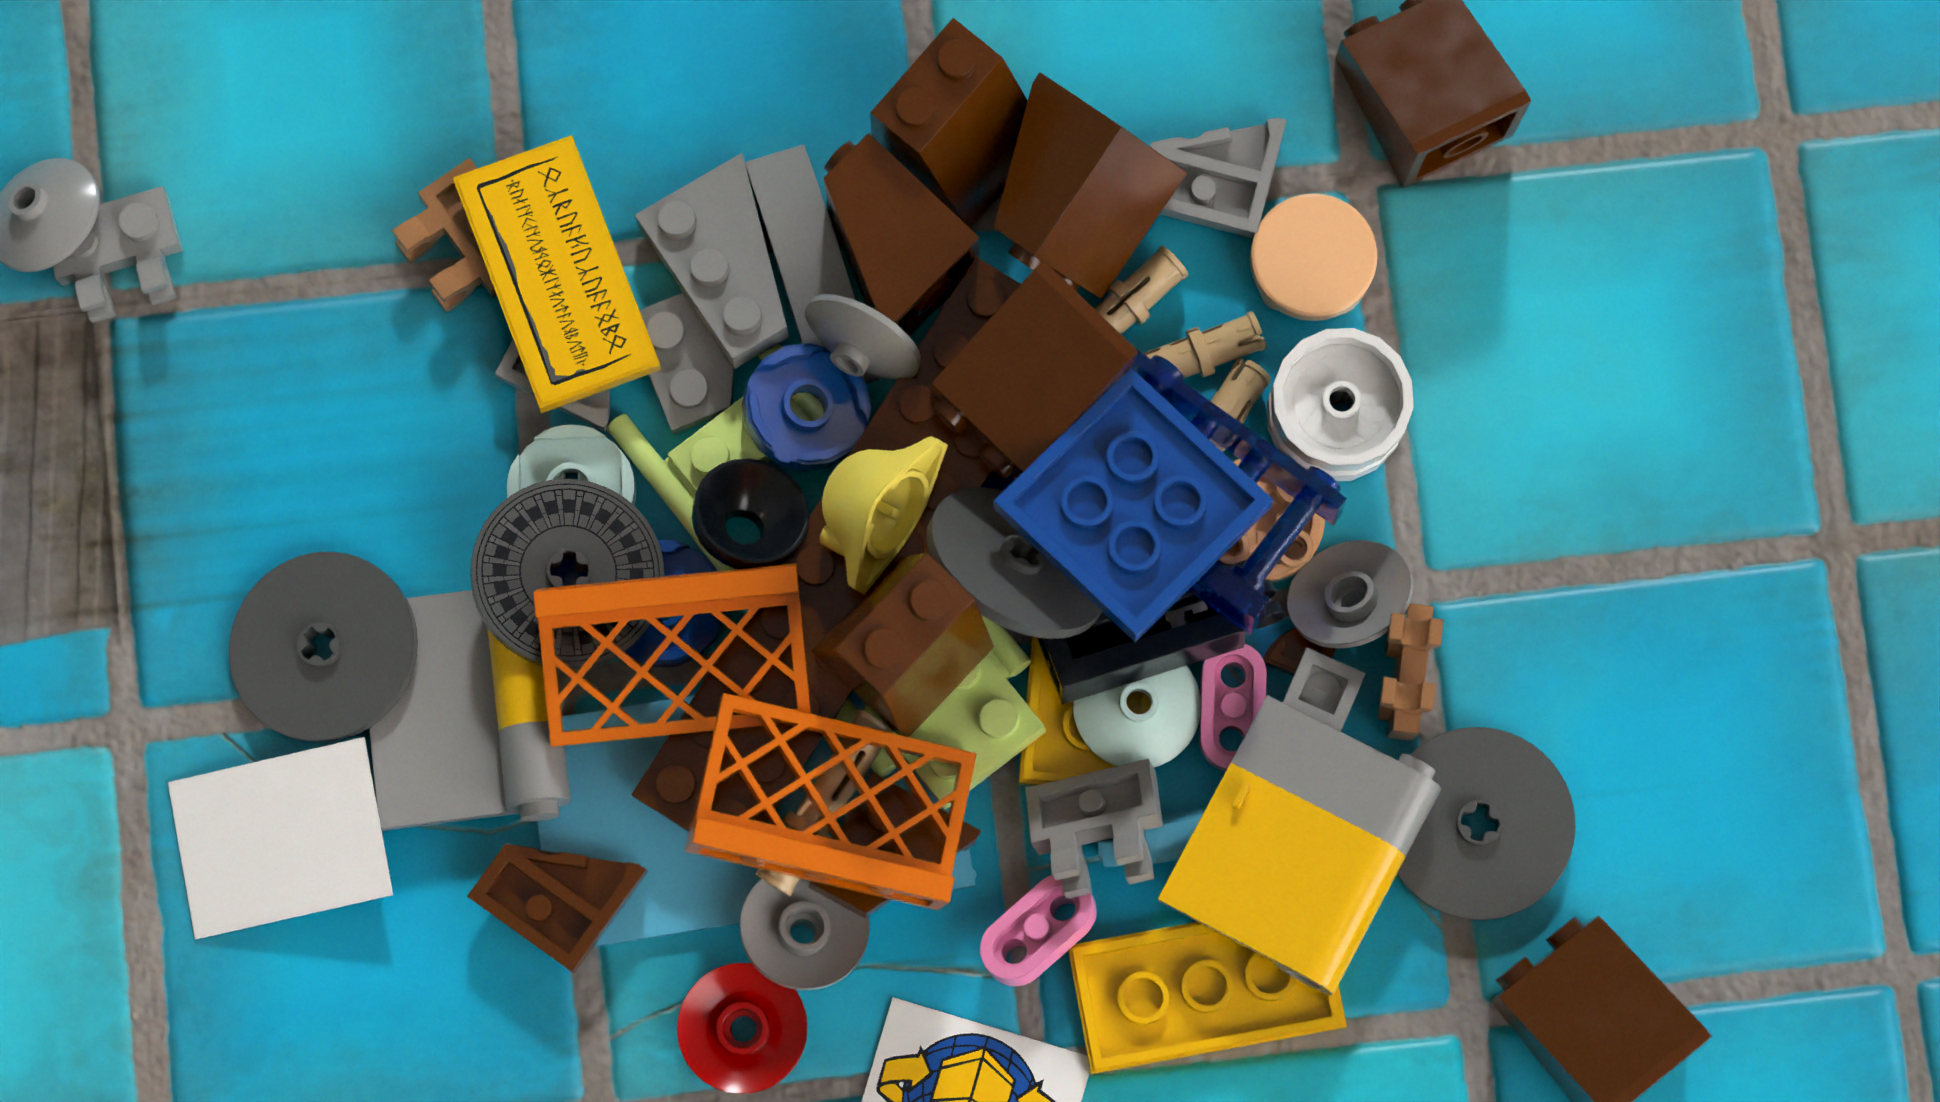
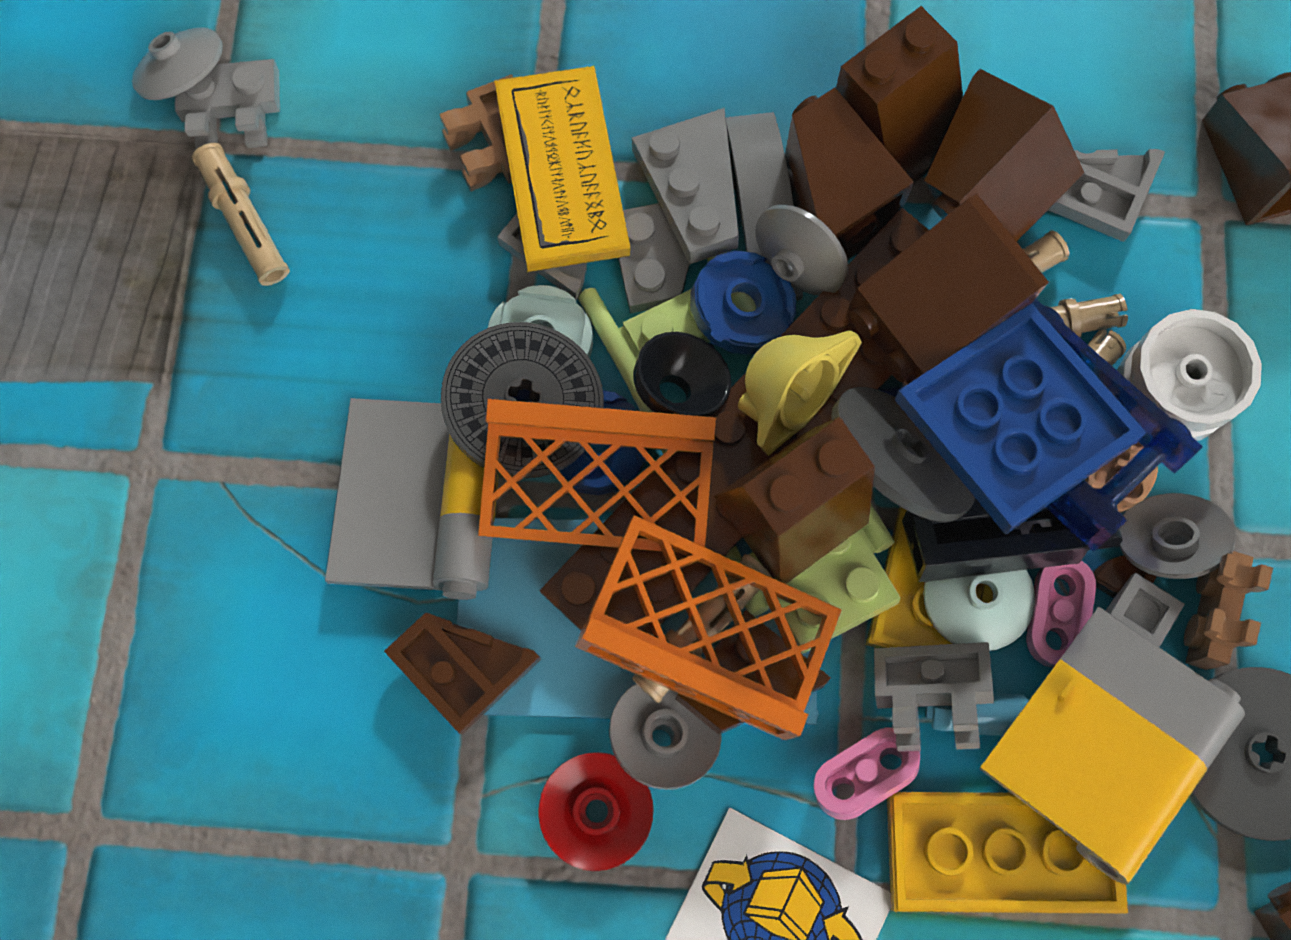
camera: 15 degrees right, 5 degrees down
(123, 342) = (215, 169): none -> tan pin
(280, 838) = (245, 575): white sticker -> none
(370, 649) = (352, 427): dark grey piece -> none
(1313, 257) = (1172, 262): light nougat tile -> none

